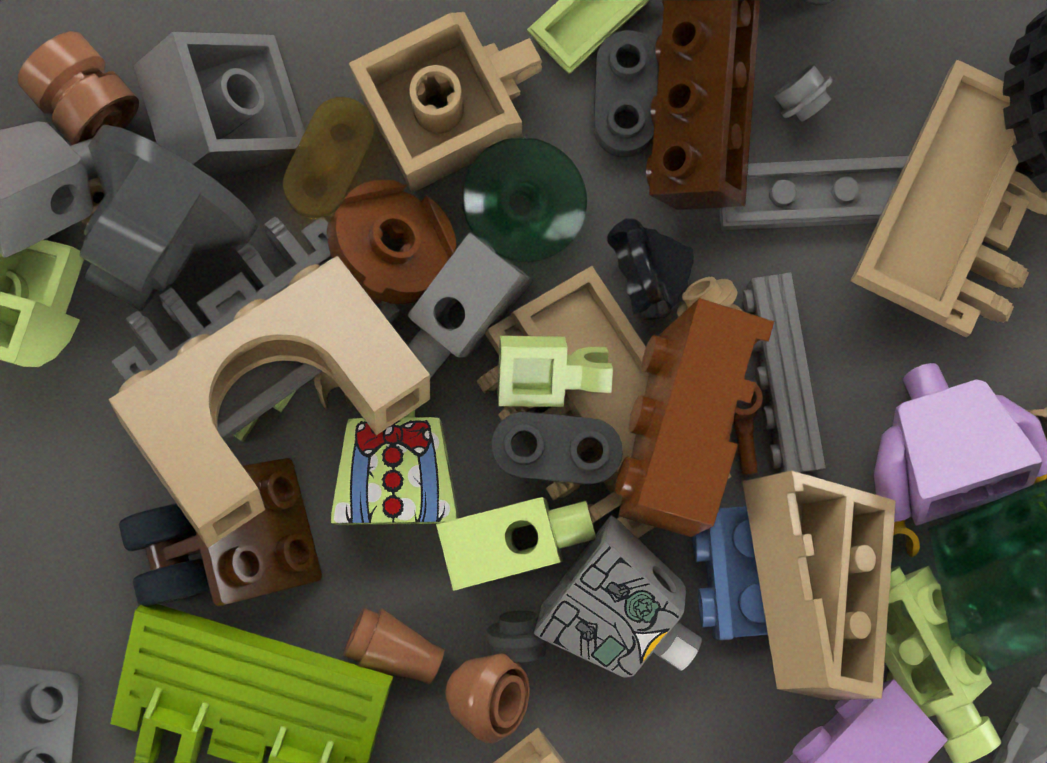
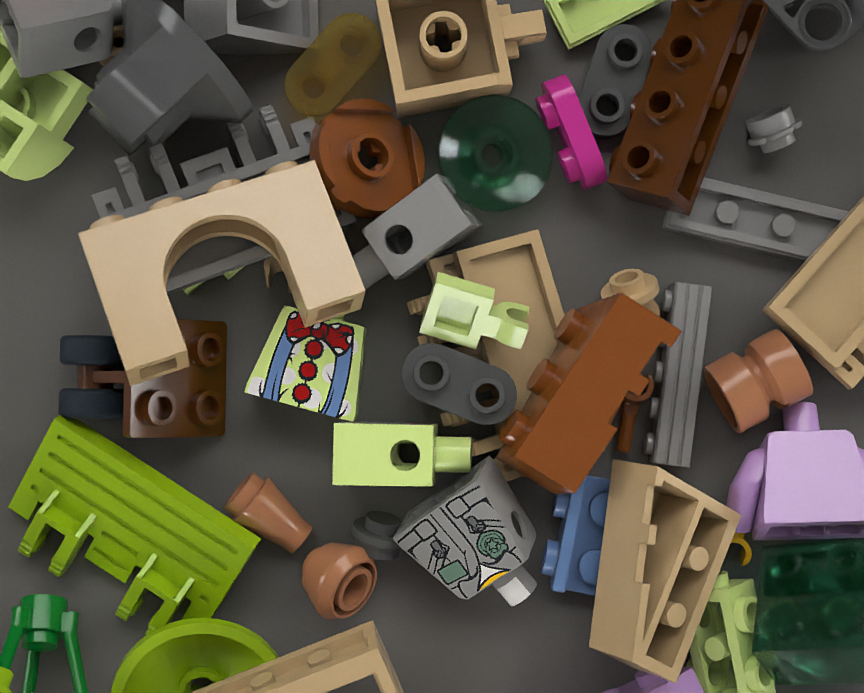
camera: 15 degrees right, 5 degrees up
(613, 176) = (562, 110): none -> dark pink plate
(653, 265) = (591, 245): black piece -> none
(876, 347) = (764, 376): none -> nougat wheel

